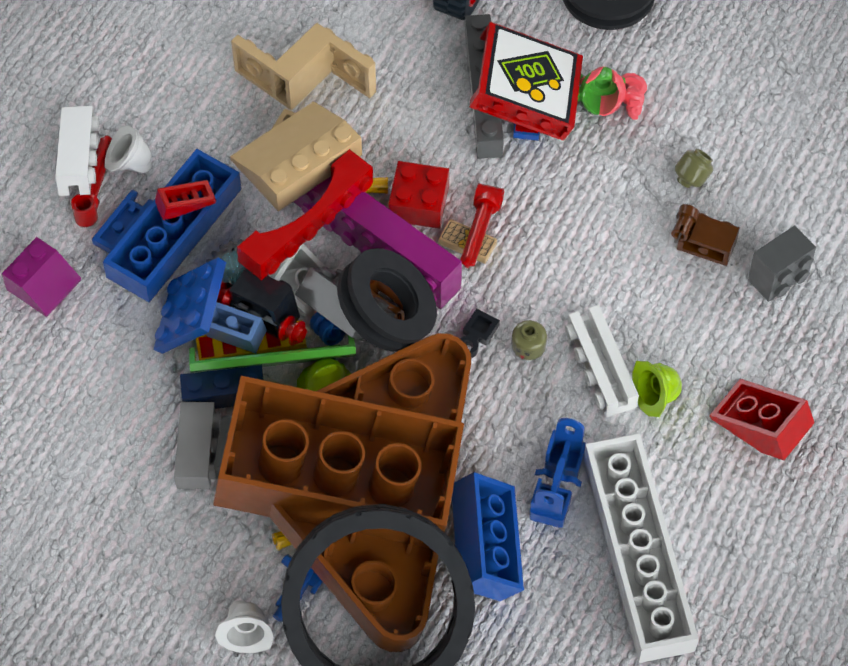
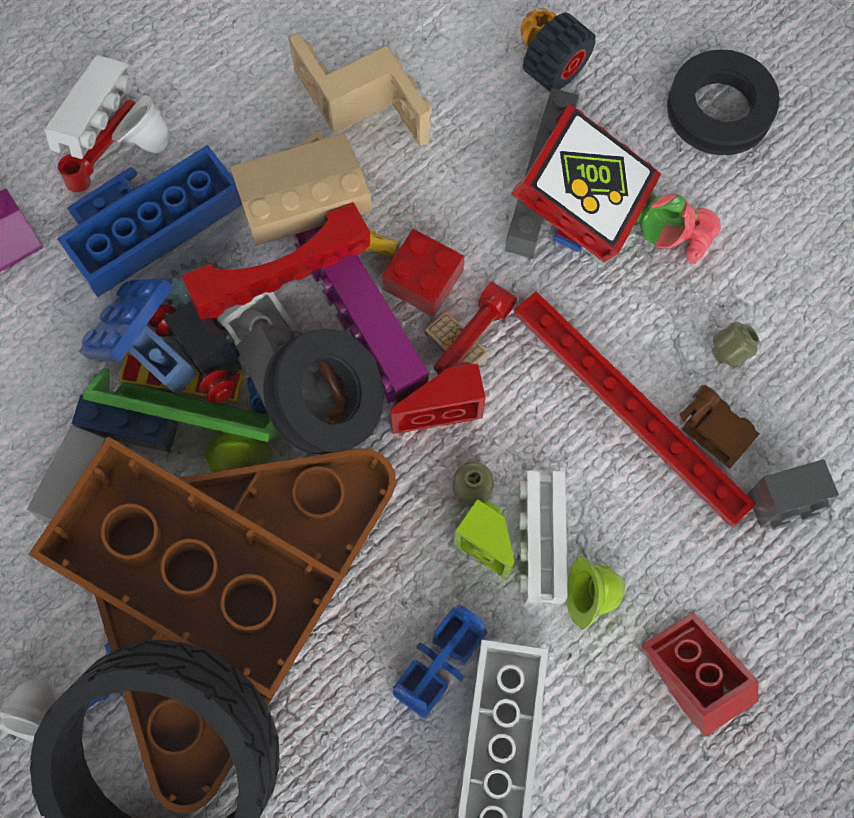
camera: 20 degrees right, 10 degrees up
(178, 208) = (157, 187): red slope -> none
(479, 329) = (425, 450): black plate -> none
(482, 283) = (446, 399): none -> red slope
(488, 535) = (328, 710): blue brick -> none
(559, 375) = (486, 538): none -> lime slope
(632, 243) = (635, 409): none -> red plate

